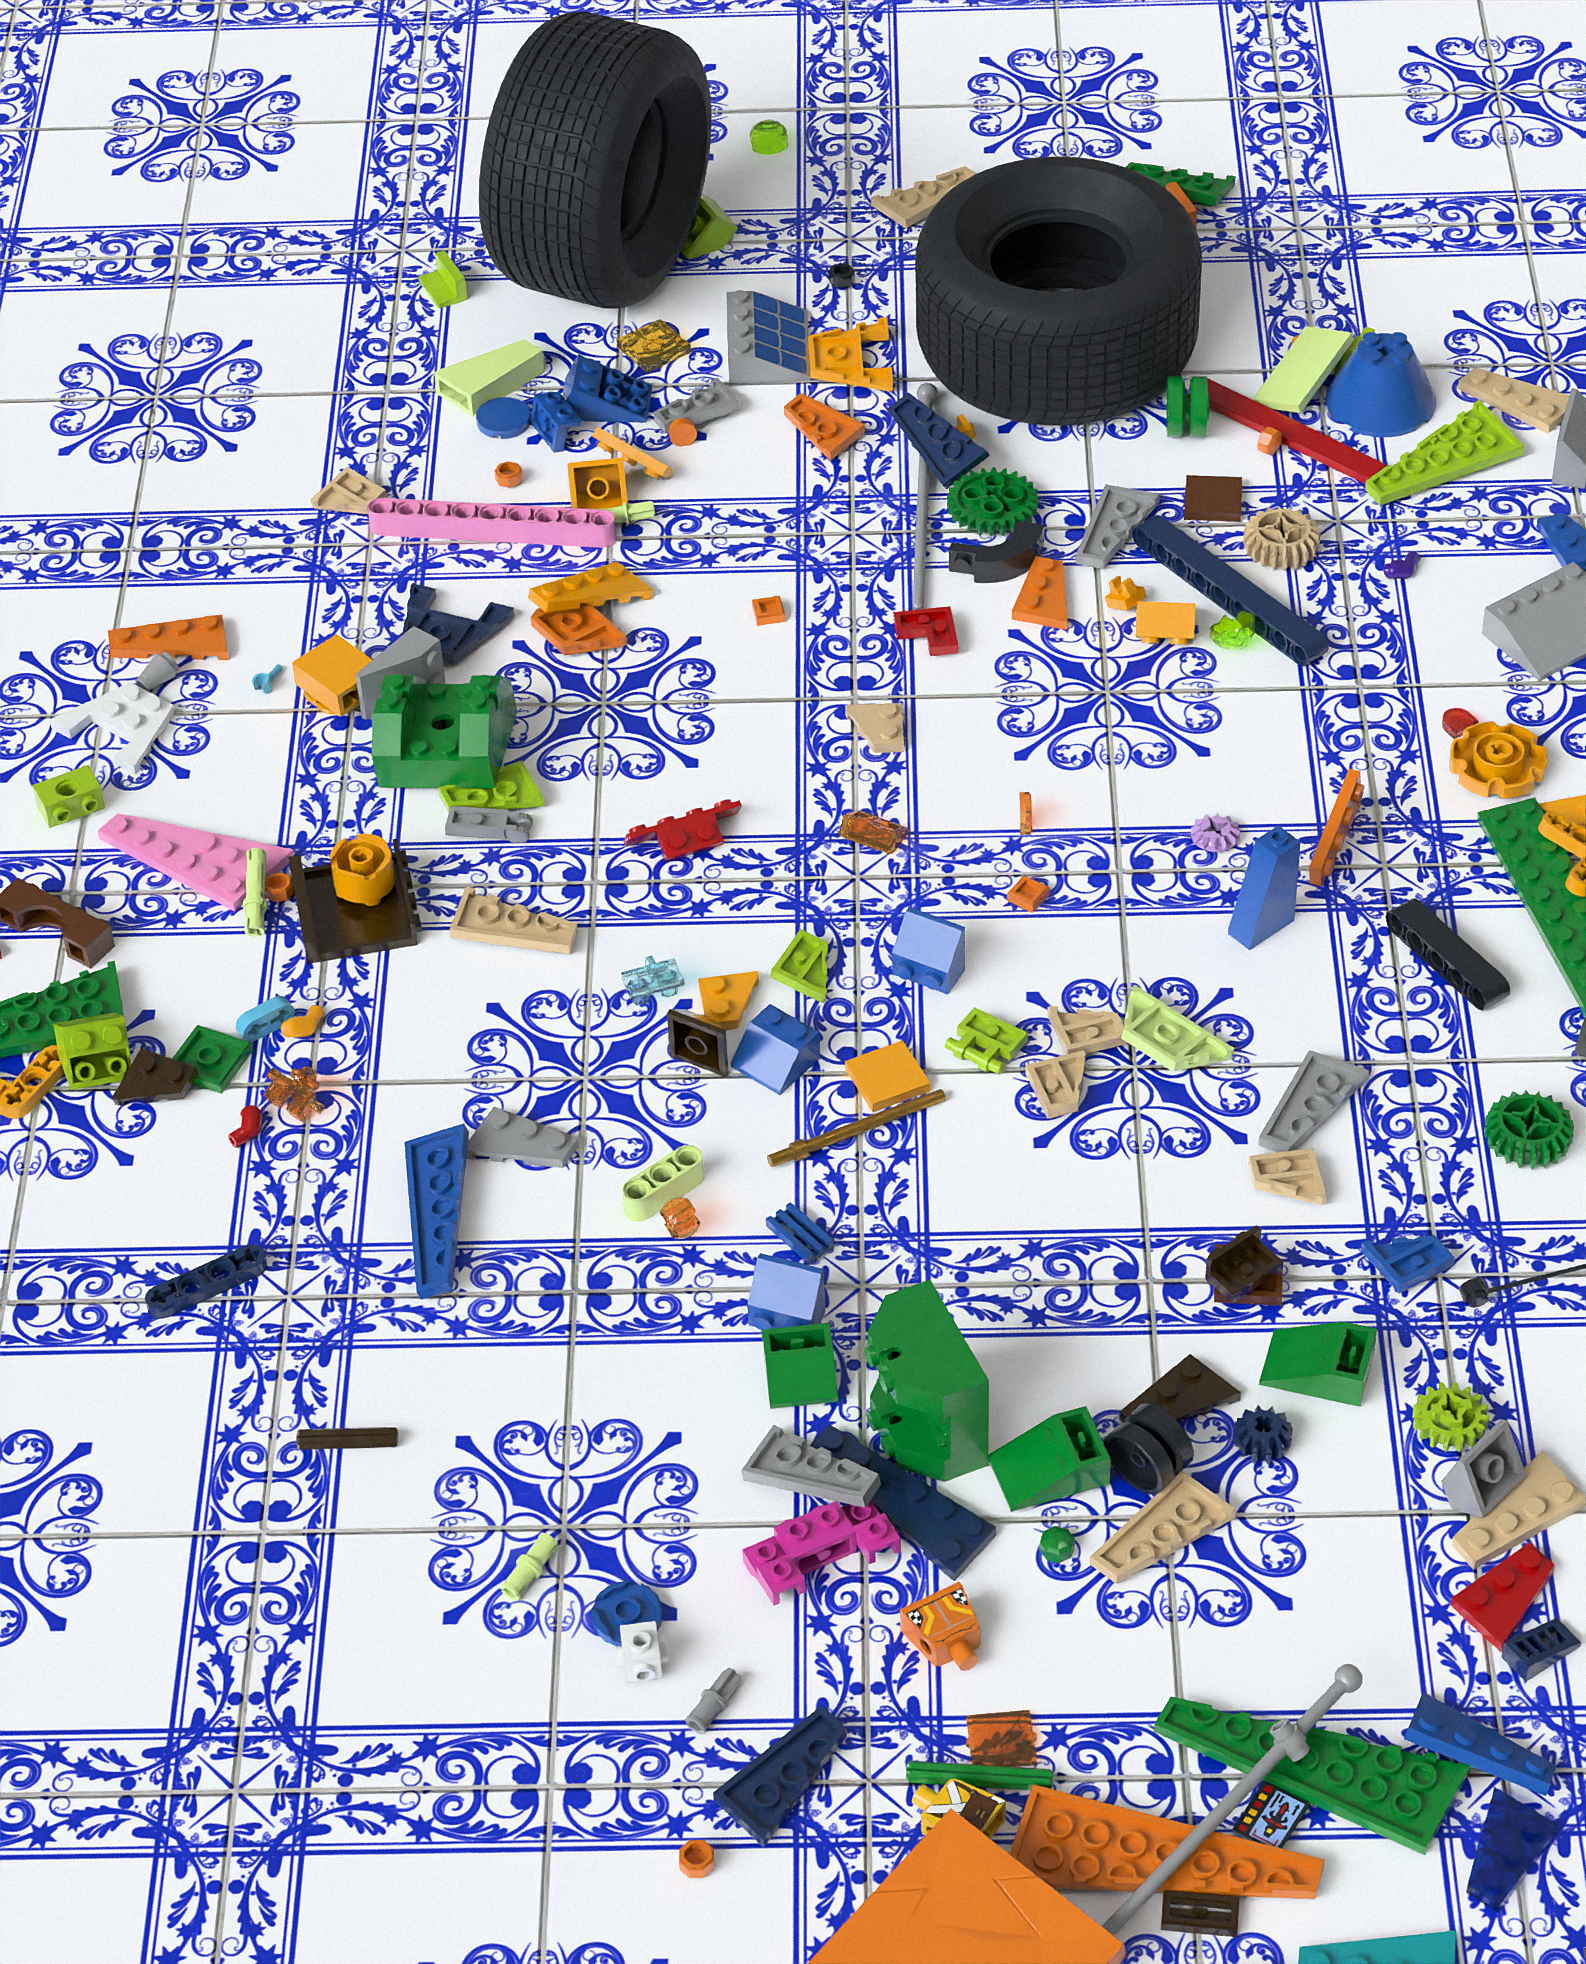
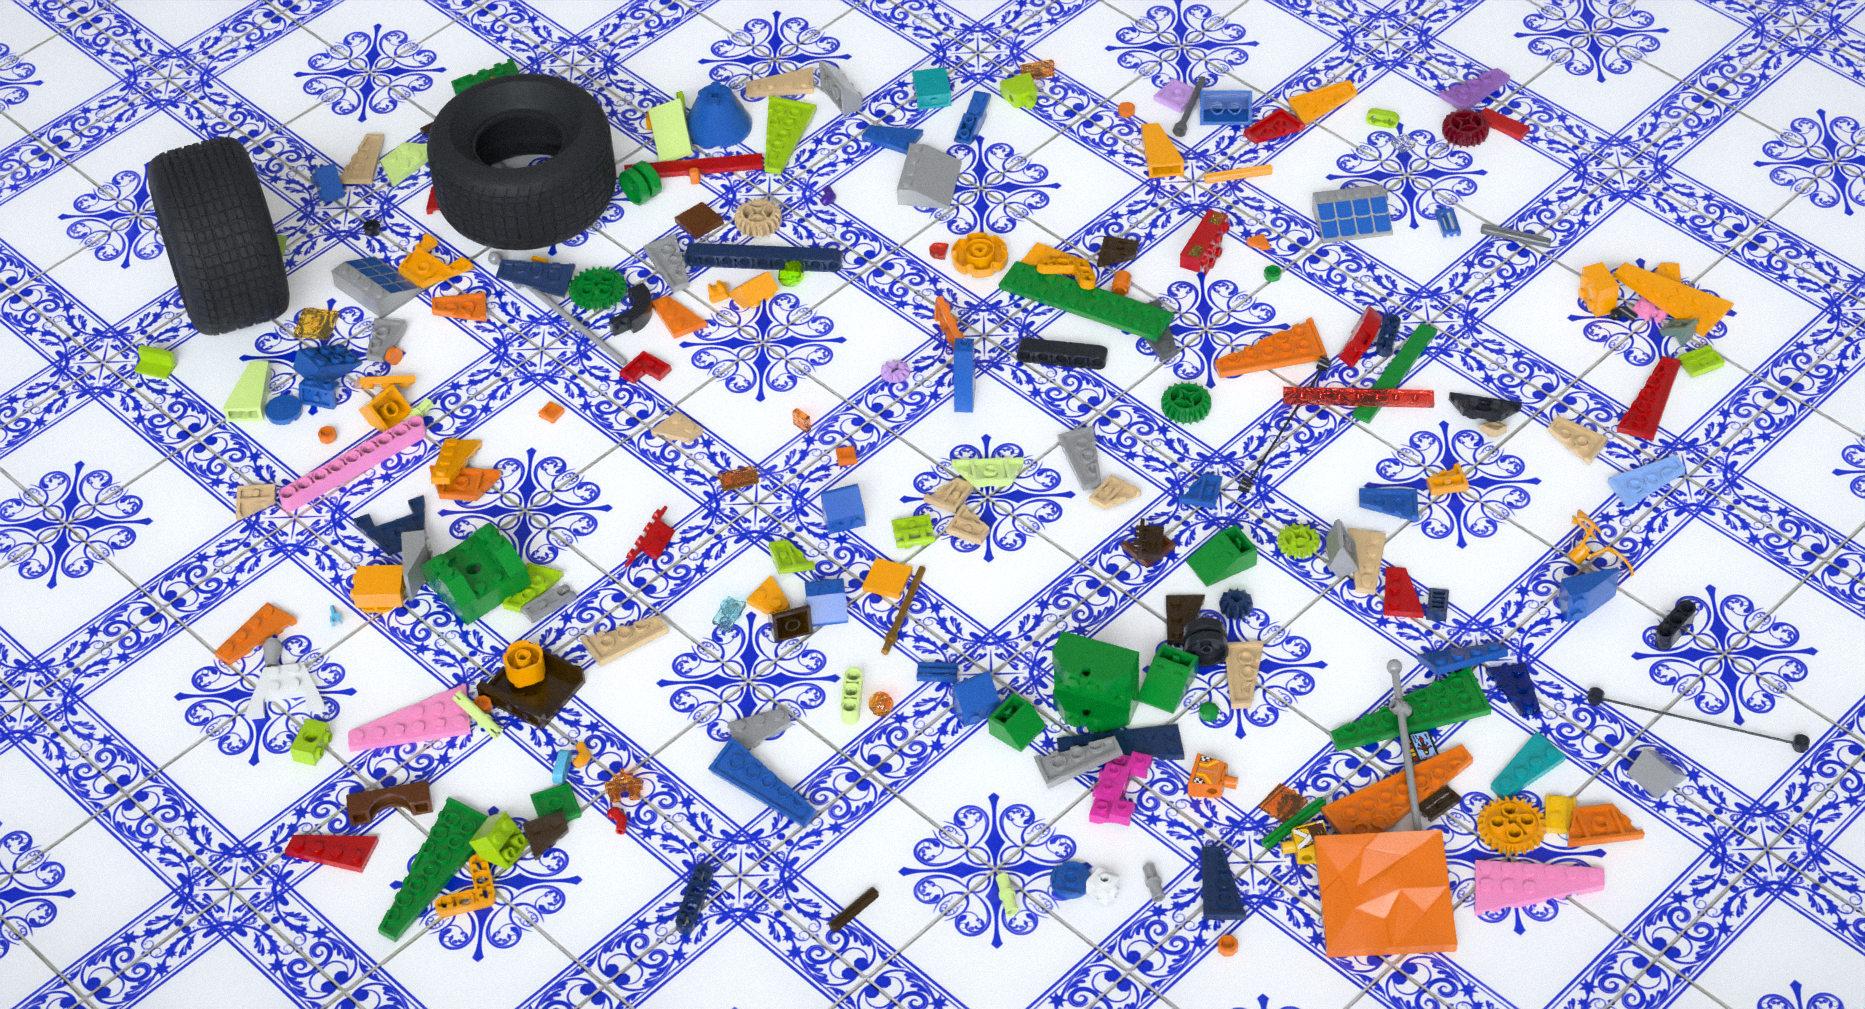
camera: 45 degrees left, 0 degrees up
(849, 194) = (328, 183): none -> blue brick

